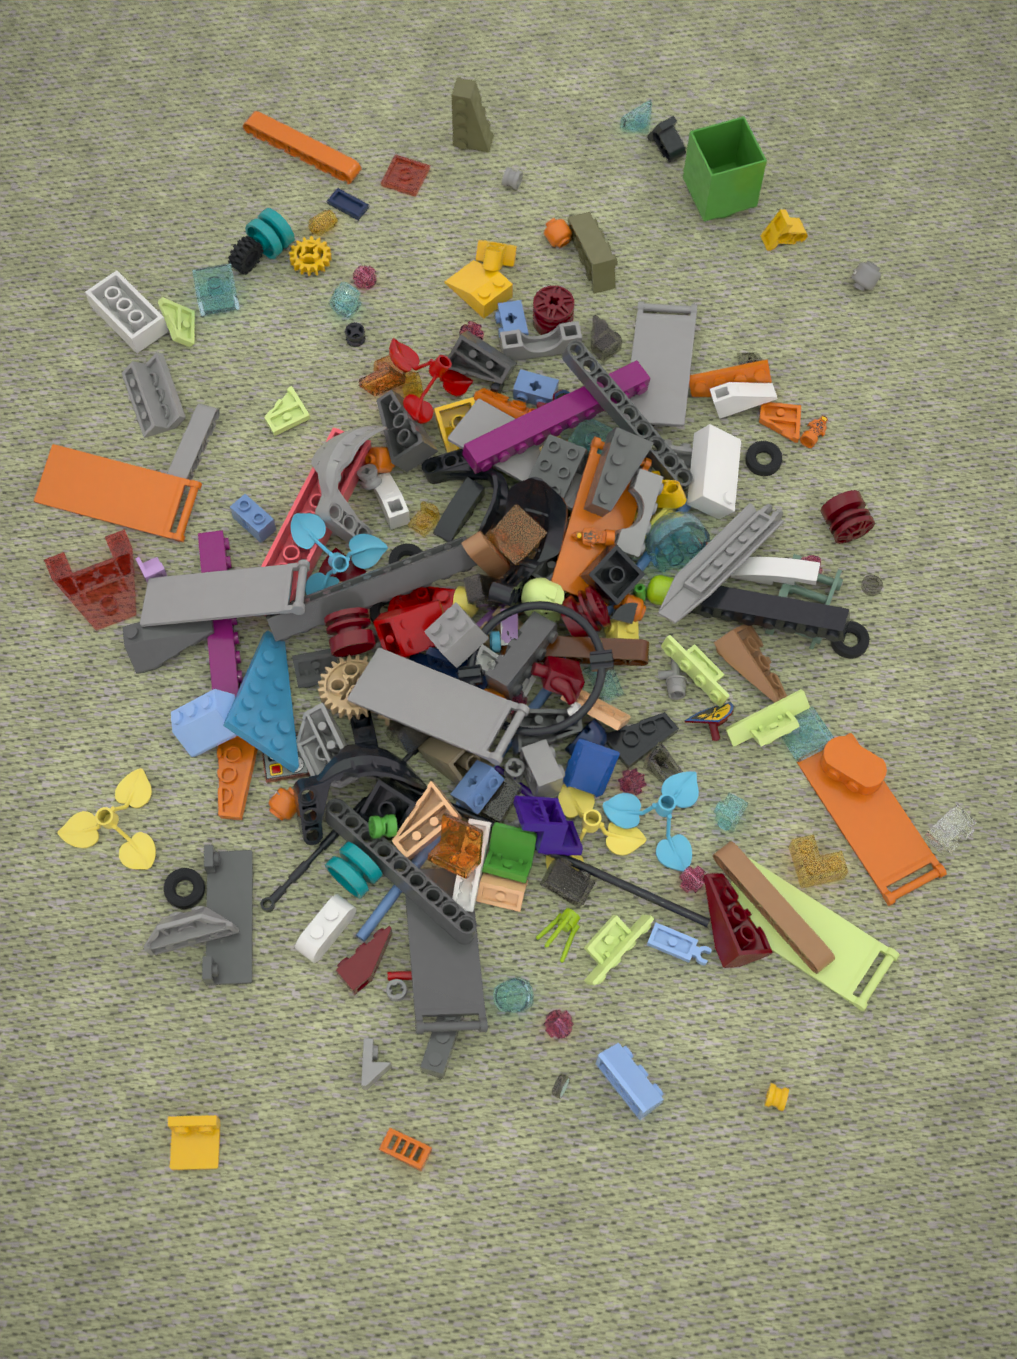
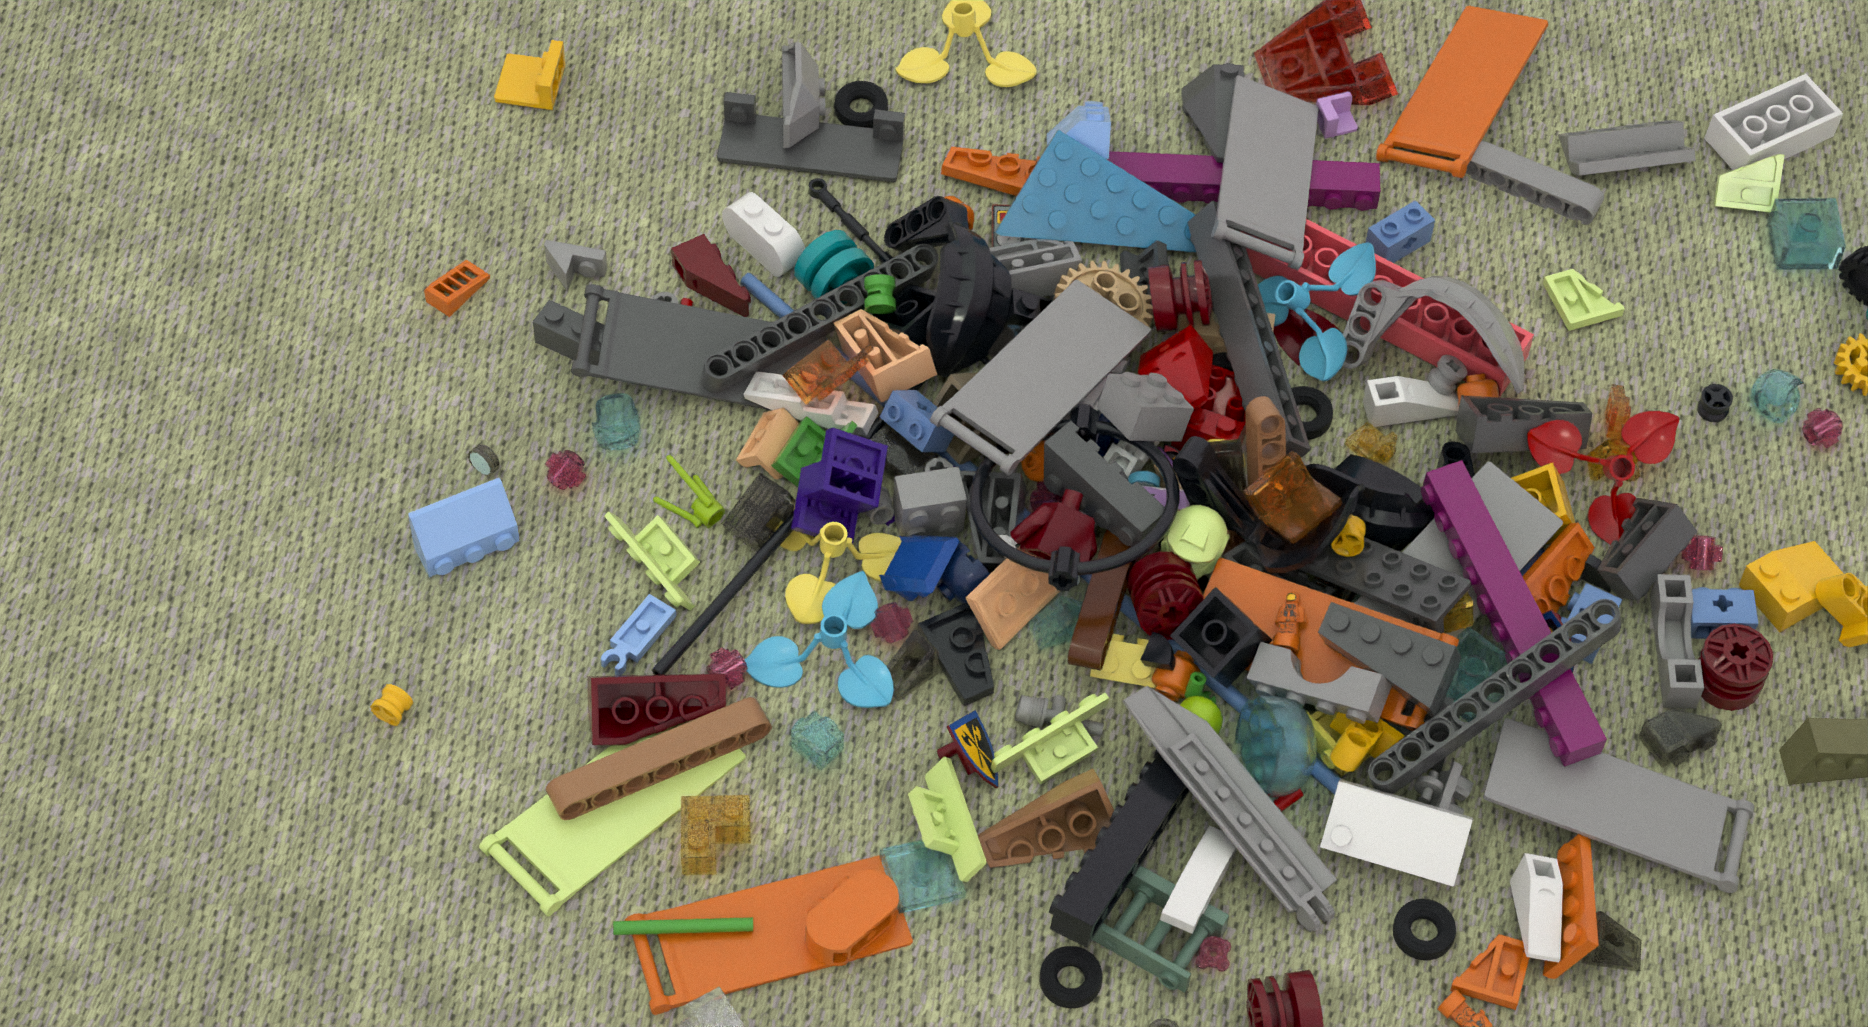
camera: 100 degrees right, 10 degrees down
(888, 868) = (682, 926): none -> bright green bar

